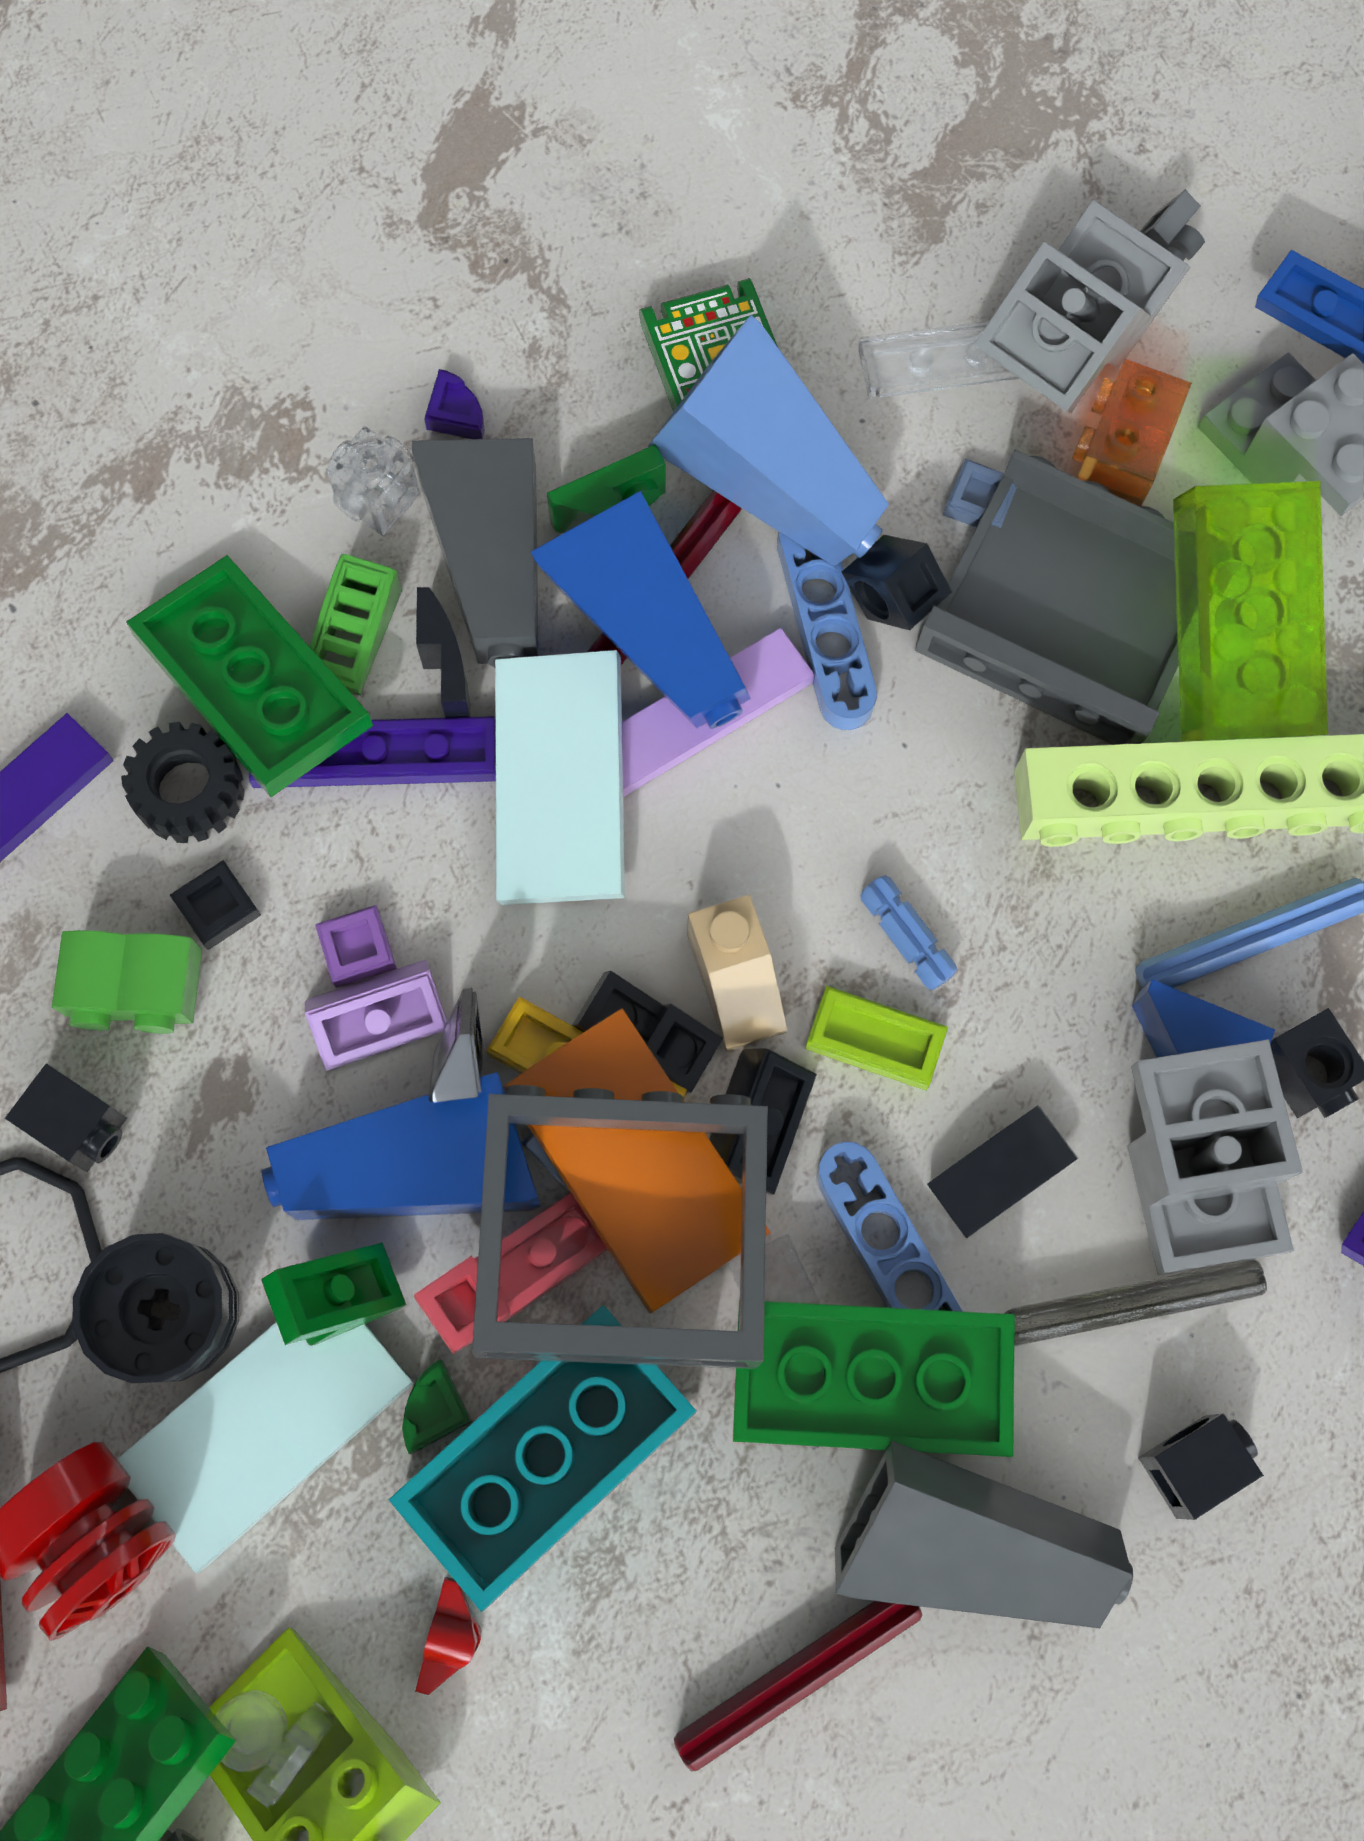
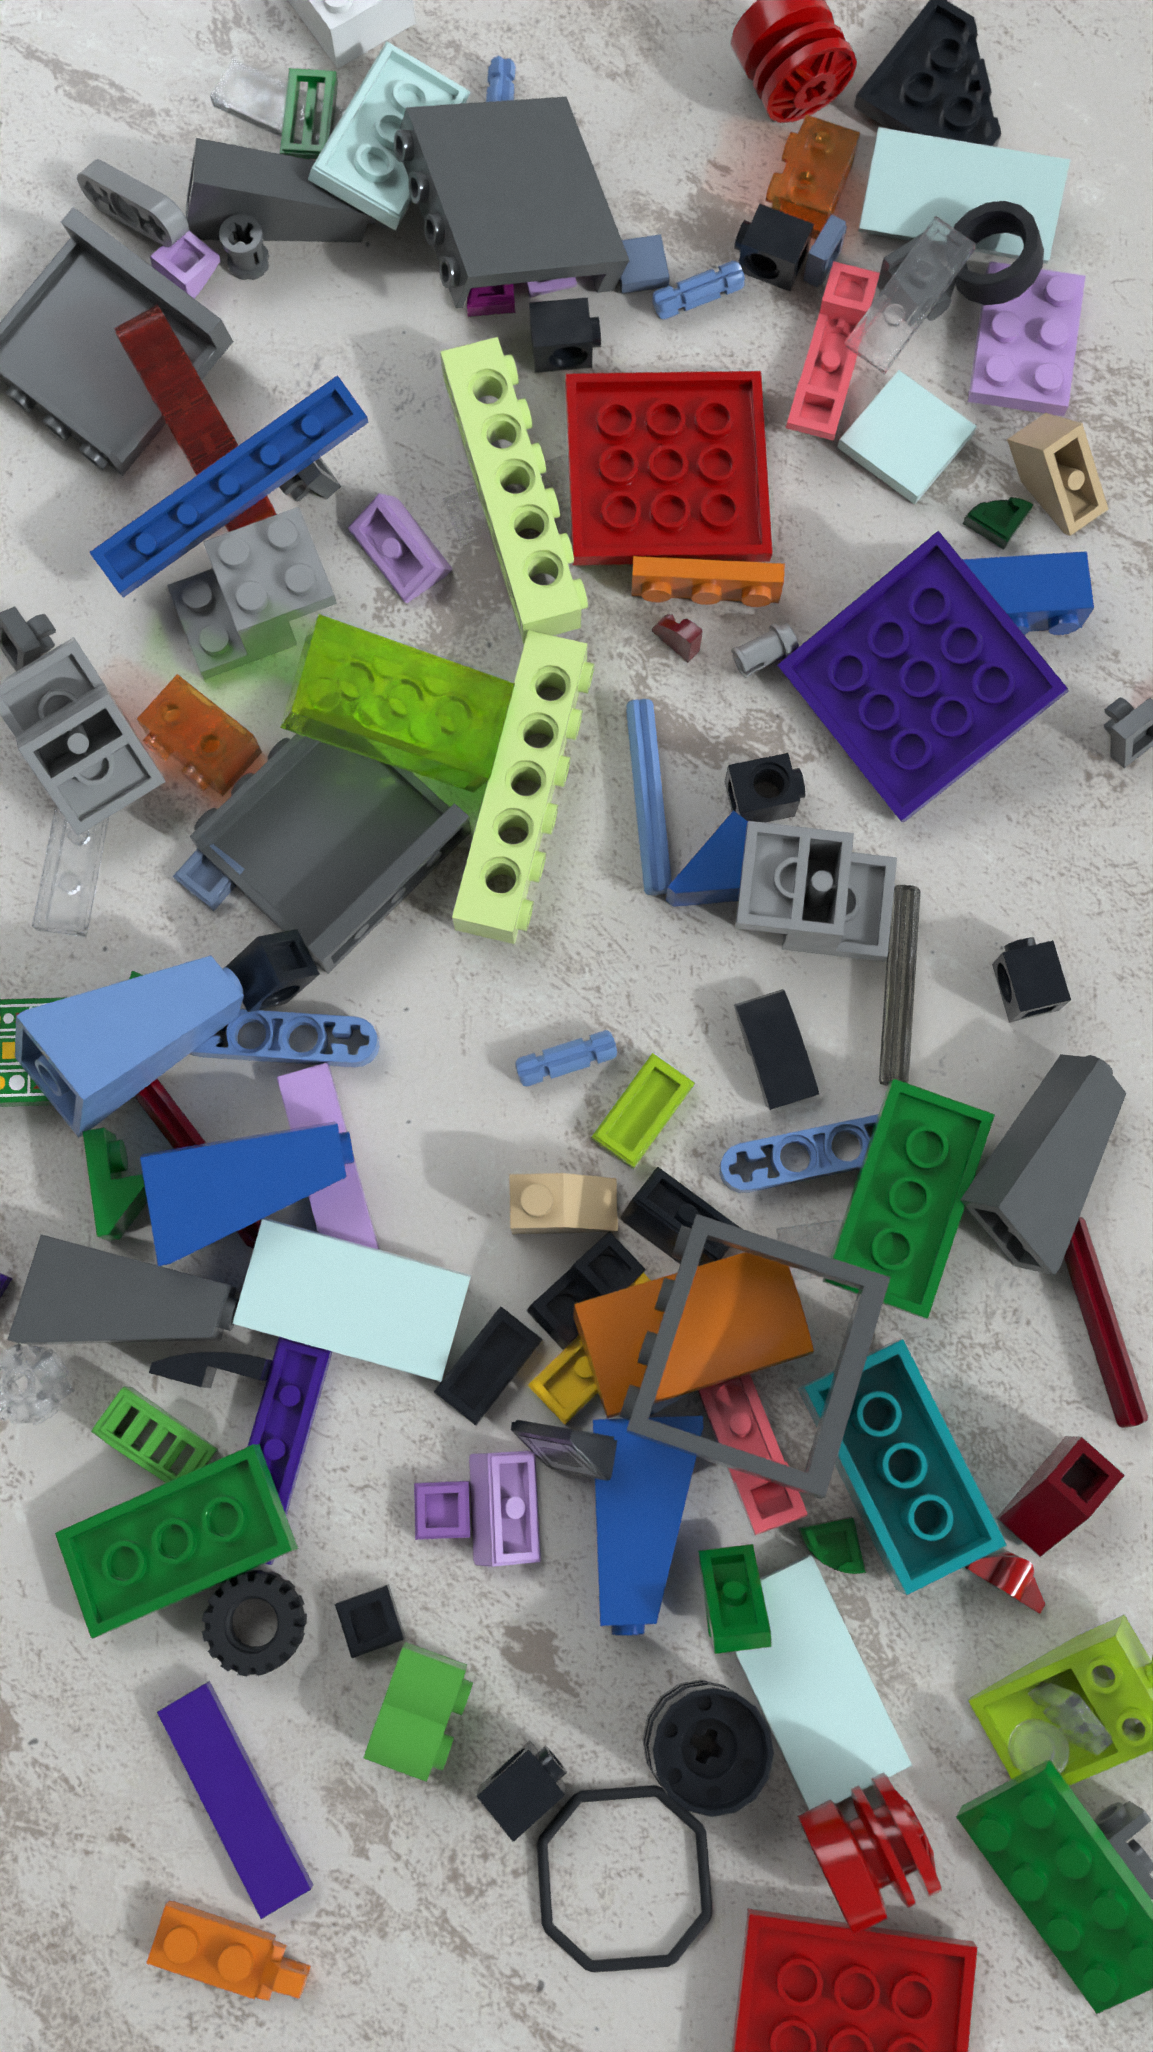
camera: 70 degrees left, 5 degrees up
(529, 949) = (488, 1365): none -> black tile
(564, 1674) = (1060, 1495): none -> dark red slope

